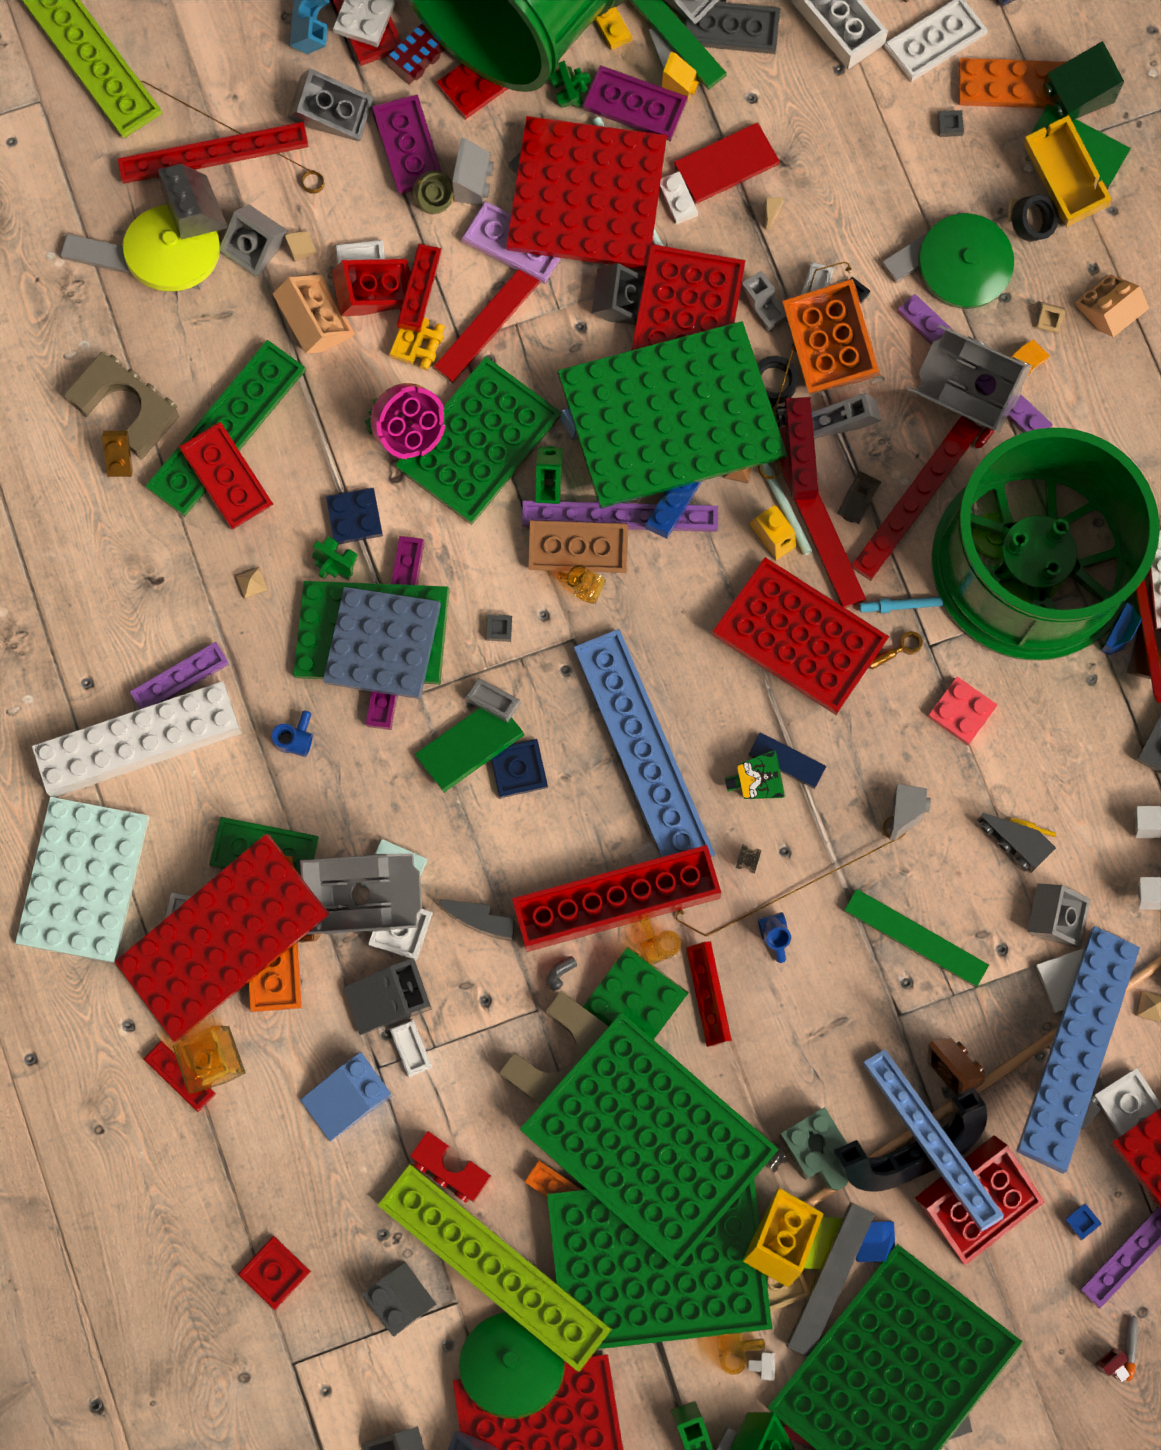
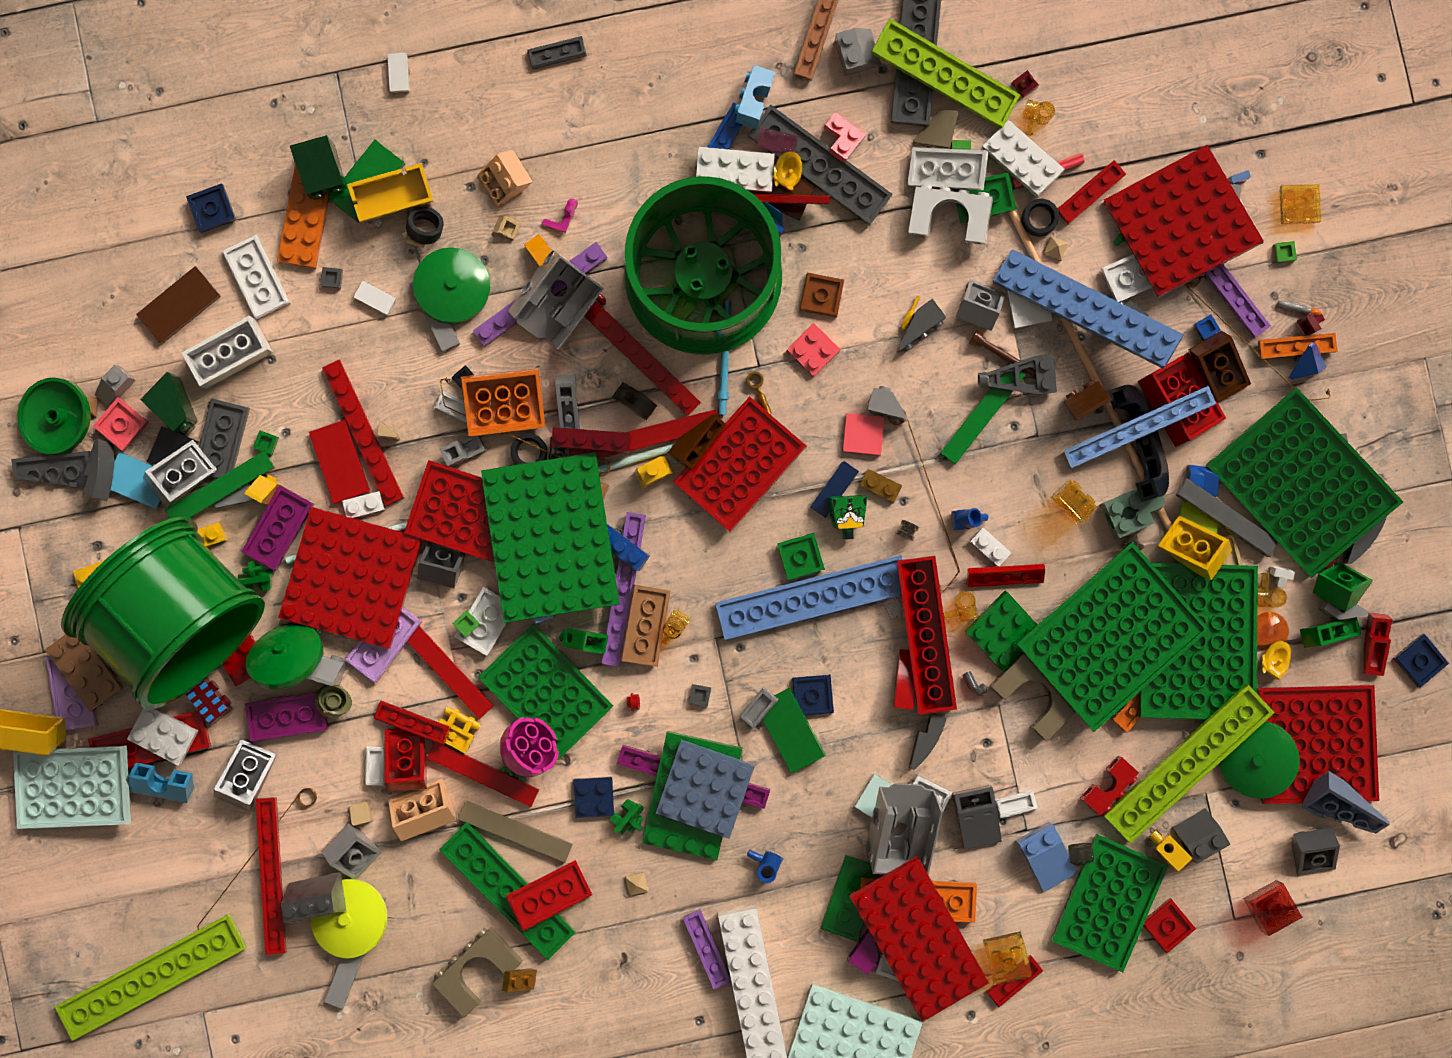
camera: 85 degrees left, 10 degrees up
(191, 875) = (865, 953): none -> magenta slope
(296, 1188) = (1109, 903): none -> green plate
(300, 428) = (515, 831): none -> dark tan tile
(314, 1408) = (1272, 907): none -> clear red brick
(356, 1139) = (1081, 853): none -> clear smoke slope
(366, 381) = (483, 773): none -> red tile
(366, 1265) = (1176, 857): none -> yellow torso
(479, 547) = (633, 702): none -> red plate
(480, 126) = (284, 656): none -> green dish
(541, 878) = (904, 683): none -> red slope
(548, 351) = (488, 613): none -> white plate
(550, 332) = (466, 623): none -> bright green tile
(649, 1375) = (1277, 659): none -> yellow hat
(684, 1377) = (1264, 623): none -> clear orange dish
(694, 728) = (800, 556): none -> green plate
(736, 76) = (266, 442): none -> green tile
(743, 971) = (990, 547): none -> white plate
(766, 185) = (363, 432): none -> red plate
(801, 819) = (880, 485): none -> pearl gold plate
(820, 1070) = (1074, 501): none -> clear yellow slope
(821, 578) = (695, 442): none -> reddish brown slope
(864, 788) = (863, 434): none -> coral tile
(934, 176) = (375, 298): none -> white tile
(983, 1009) = (1044, 376): none -> dark grey plate
(1012, 919) = (979, 340): none -> reddish brown piece
(1033, 1246) = (1220, 365): none -> reddish brown slope
(1035, 712) = (822, 295): none -> dark orange tile
(1060, 1365) = (1309, 363): none -> blue slope
(1079, 1350) = (1296, 345): none -> orange plate
(1083, 388) = (569, 213): none -> dark pink piece
(1135, 1196) = (1194, 285): none -> pearl gold piece

